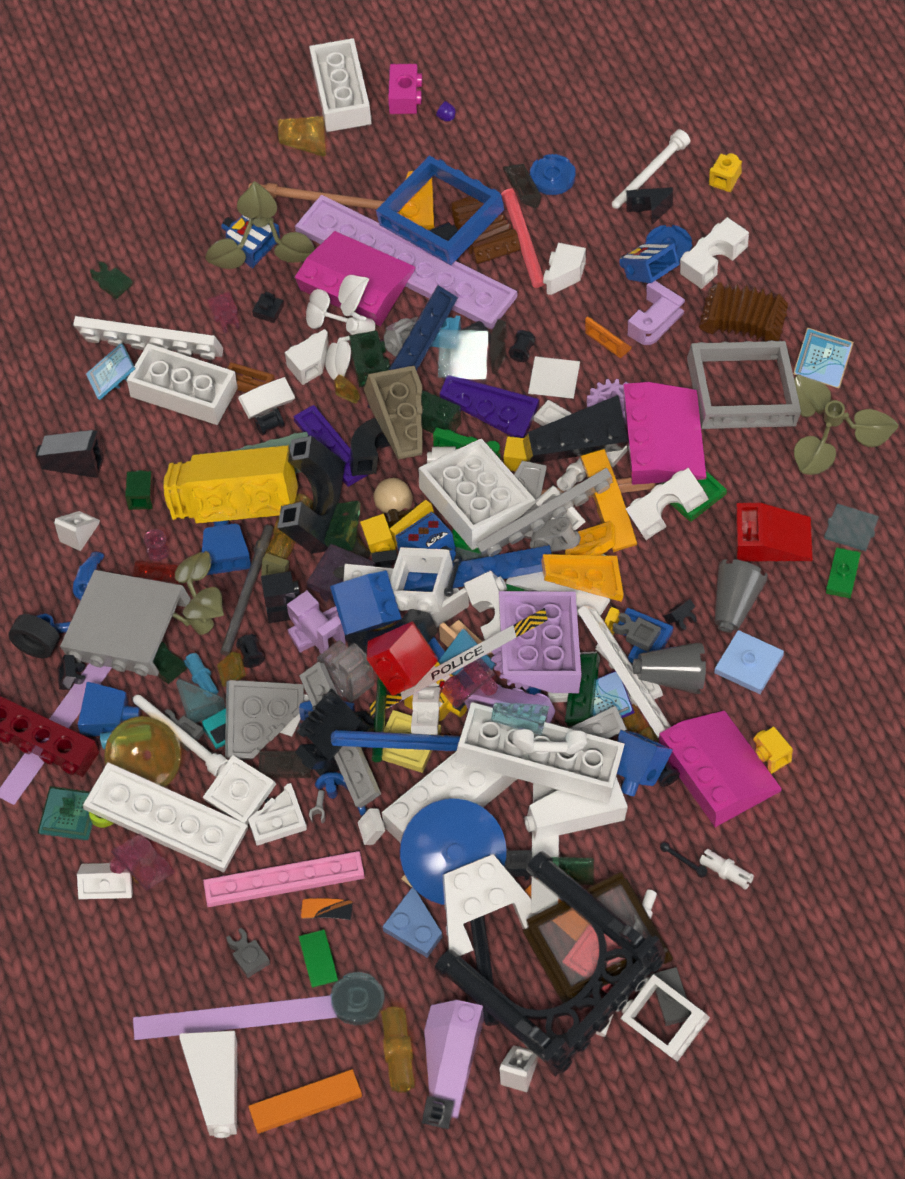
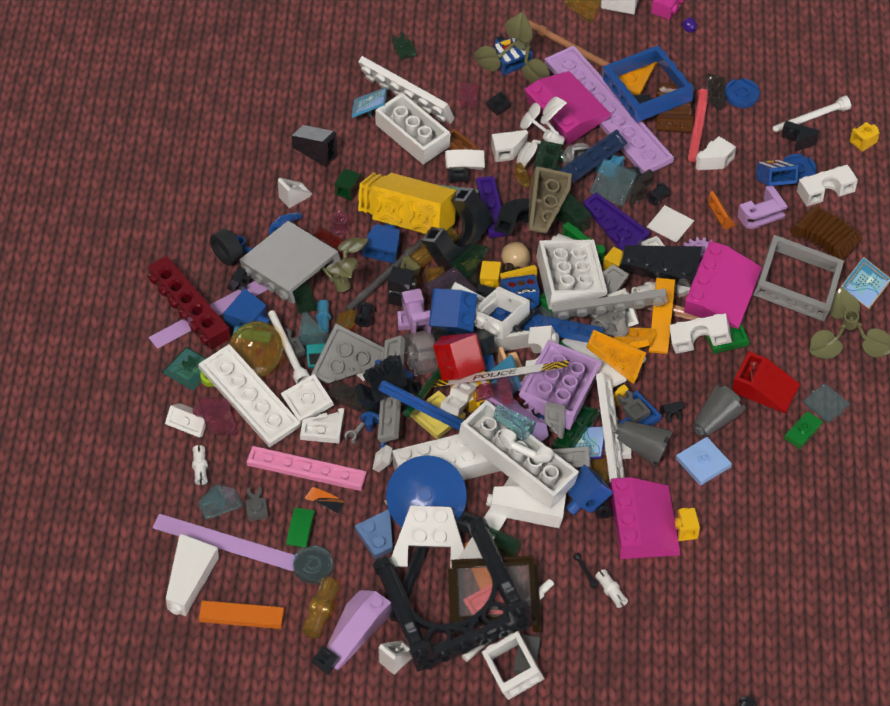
camera: 20 degrees right, 5 degrees down
(151, 933) = (199, 465): none -> white pin
(200, 970) = (219, 501): none -> clear light blue slope
(307, 564) = (432, 273): none -> clear yellow plate
(558, 686) = (555, 417): none -> light grey tile

